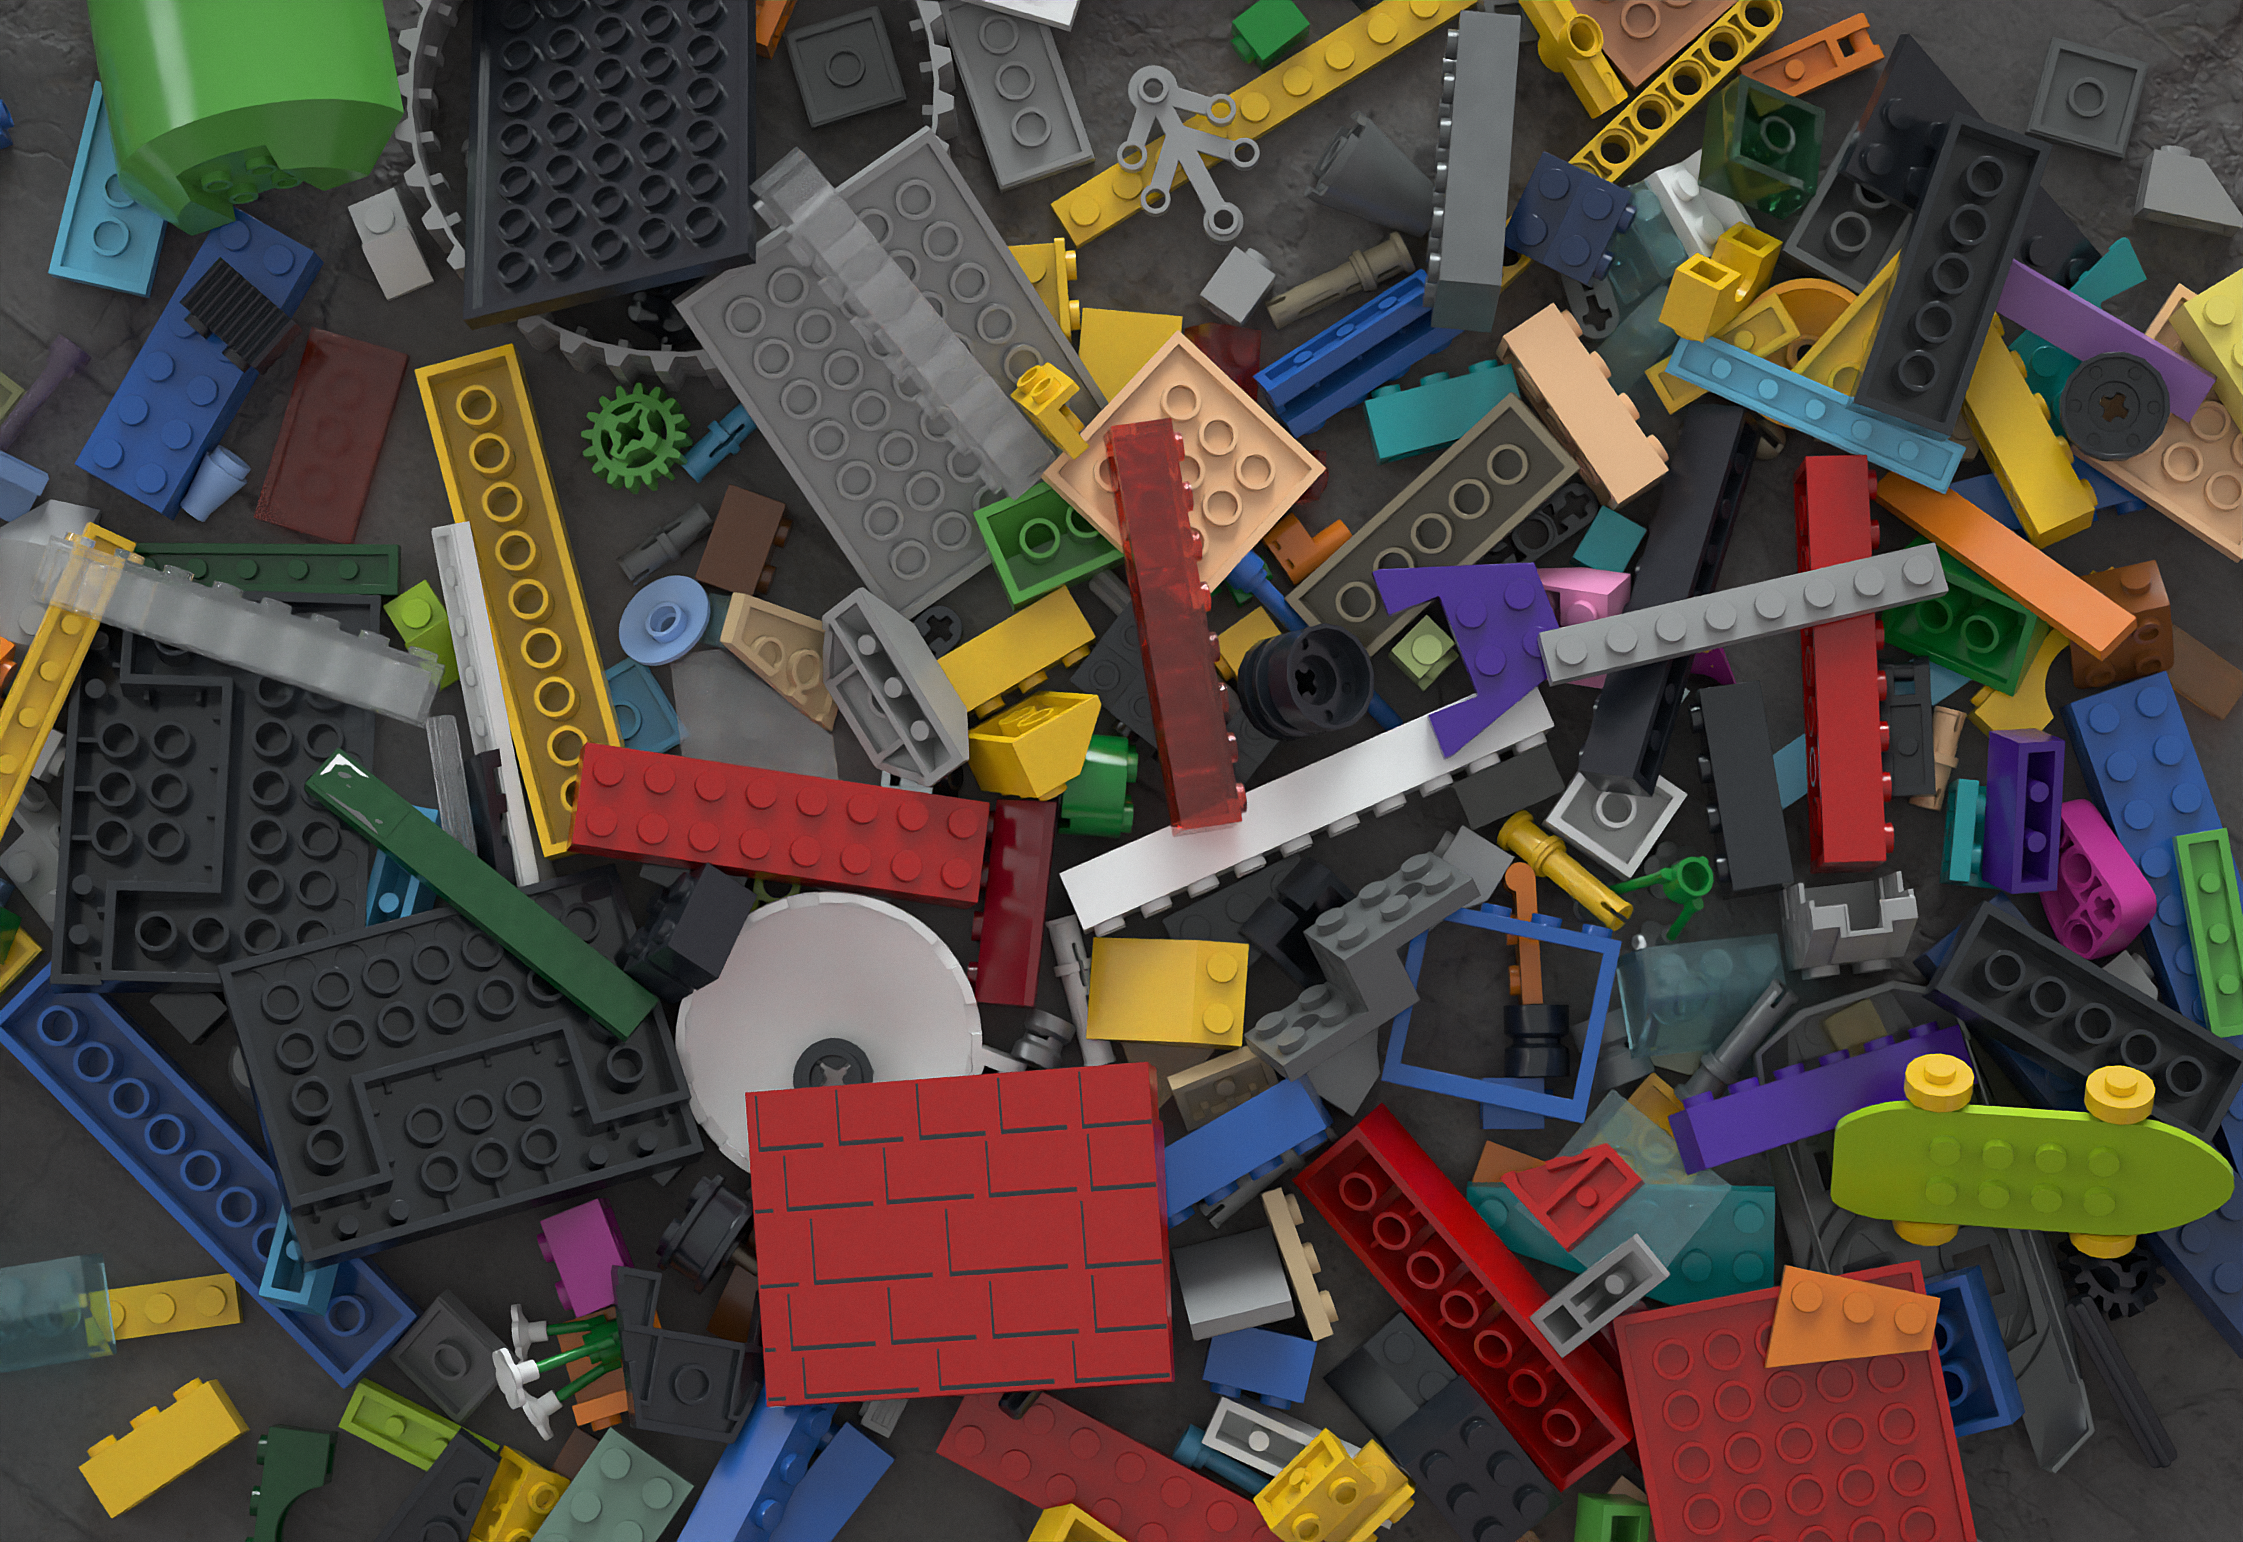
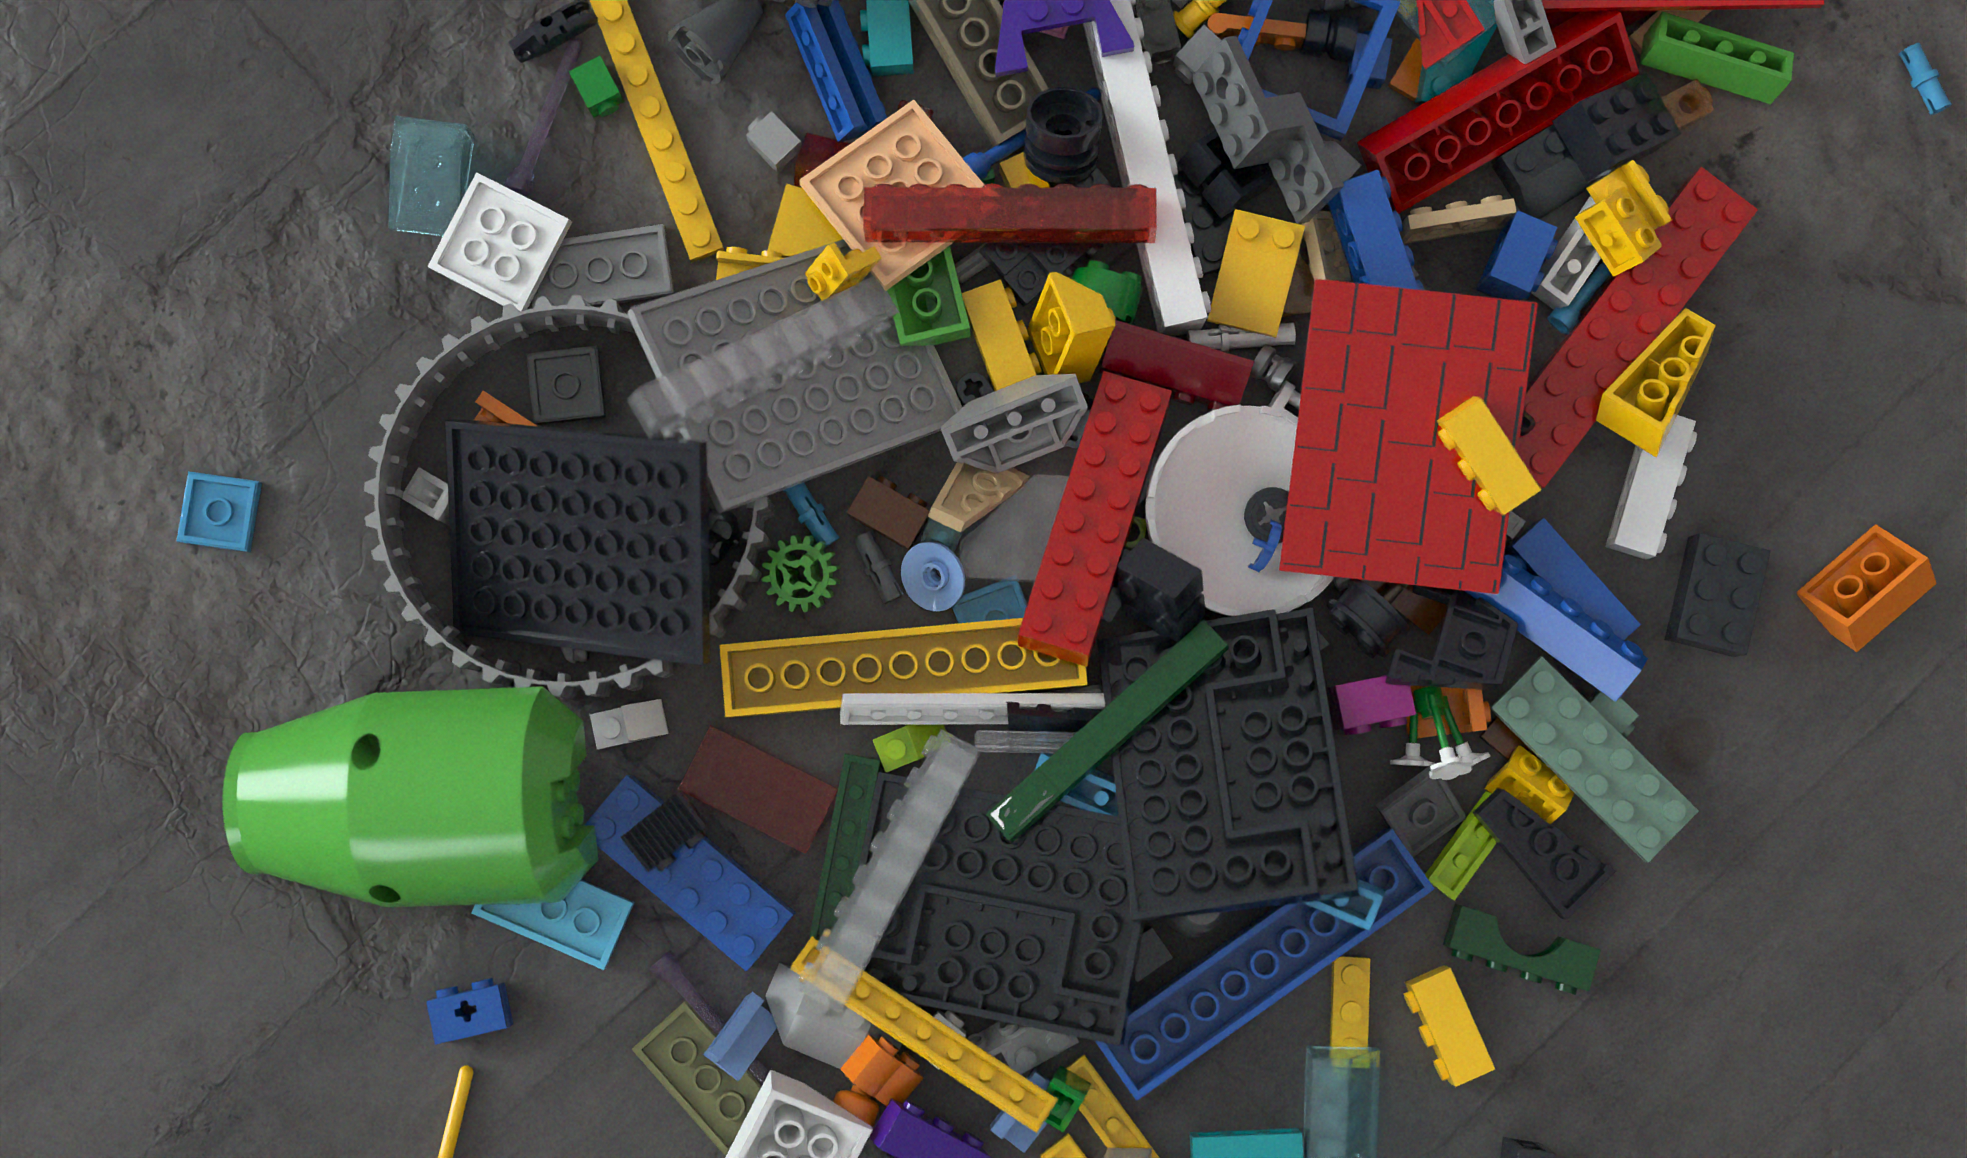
camera: 85 degrees left, 0 degrees up
(215, 482) = (775, 875): light blue cone -> none
(782, 1078) = (1268, 547): none -> blue piece
(945, 1348) = (1487, 456): none -> yellow brick
(1182, 146) = (668, 159): light grey plant -> none
(1233, 1283) = (1466, 259): light grey tile -> none
(1299, 553) = (966, 133): orange piece -> none
(1361, 272) = (779, 57): dark tan pin -> none
(1424, 653) = (1052, 61): yellowish green brick -> none

